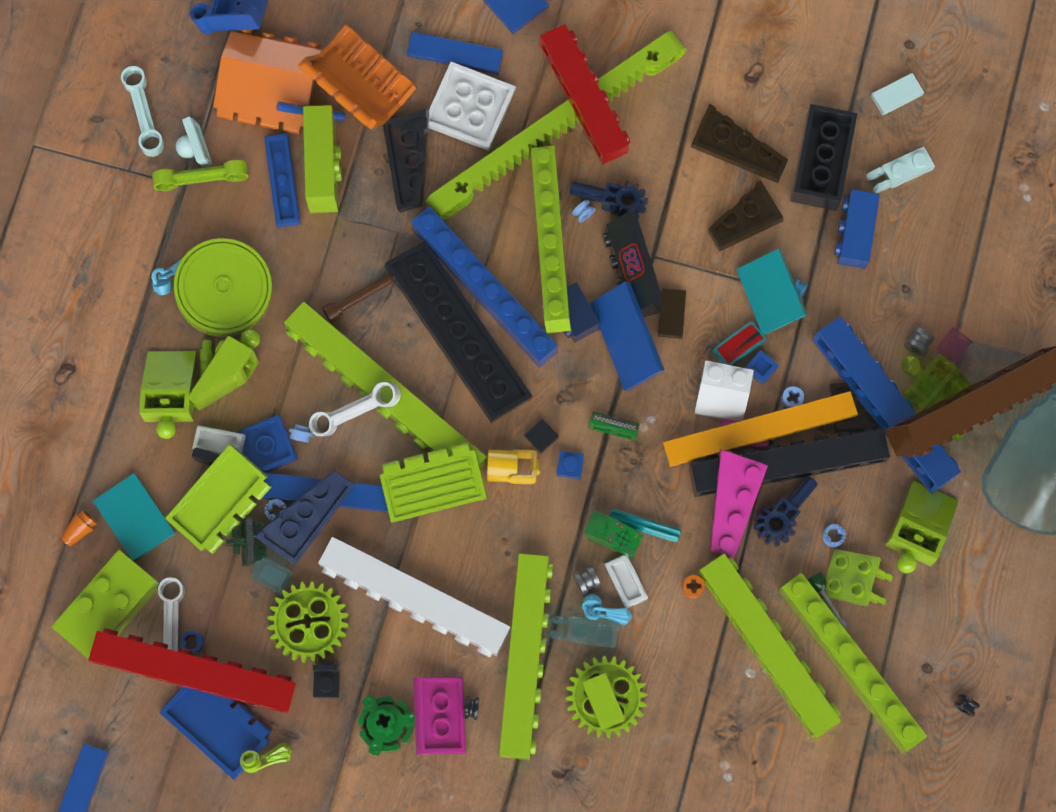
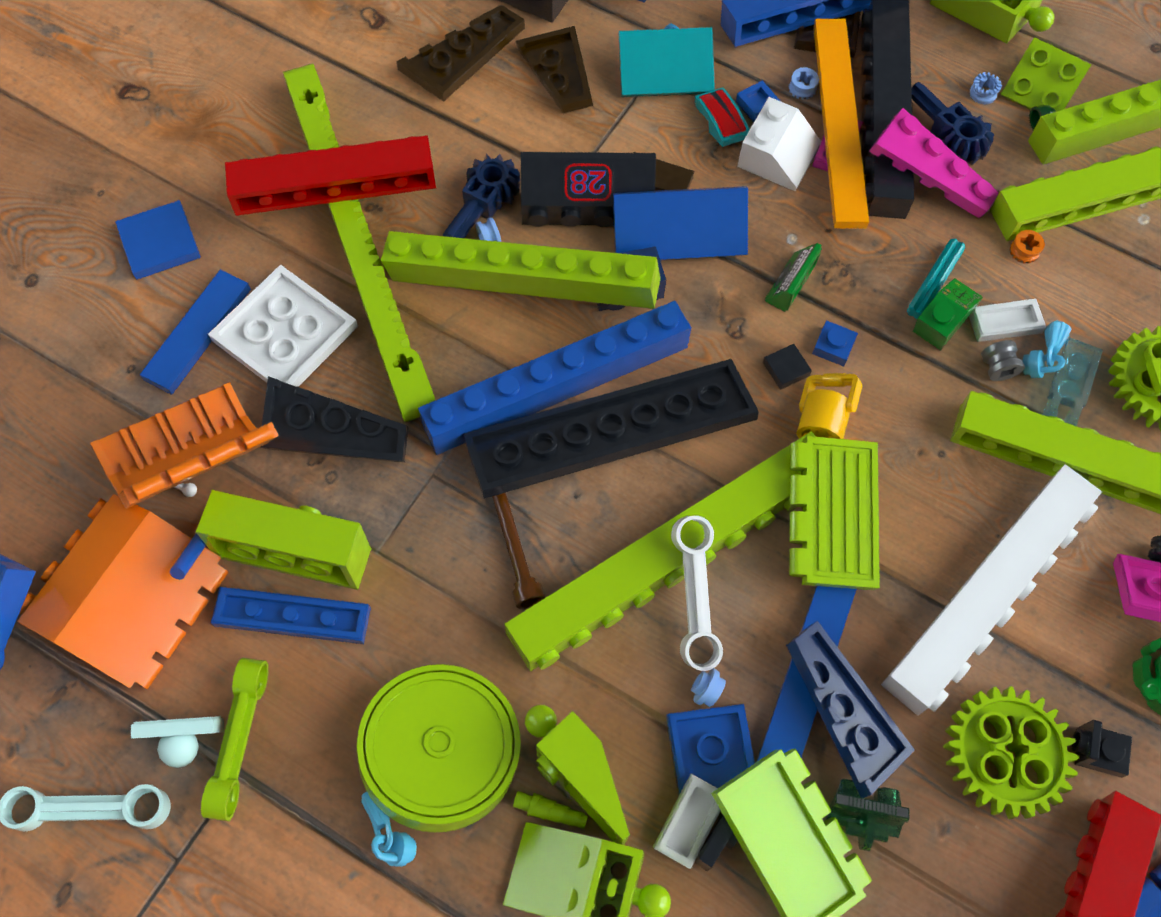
camera: 75 degrees left, 10 degrees down
(269, 507) = (827, 749): light blue bush -> none
(270, 575) = (929, 790): clear light blue brick -> none

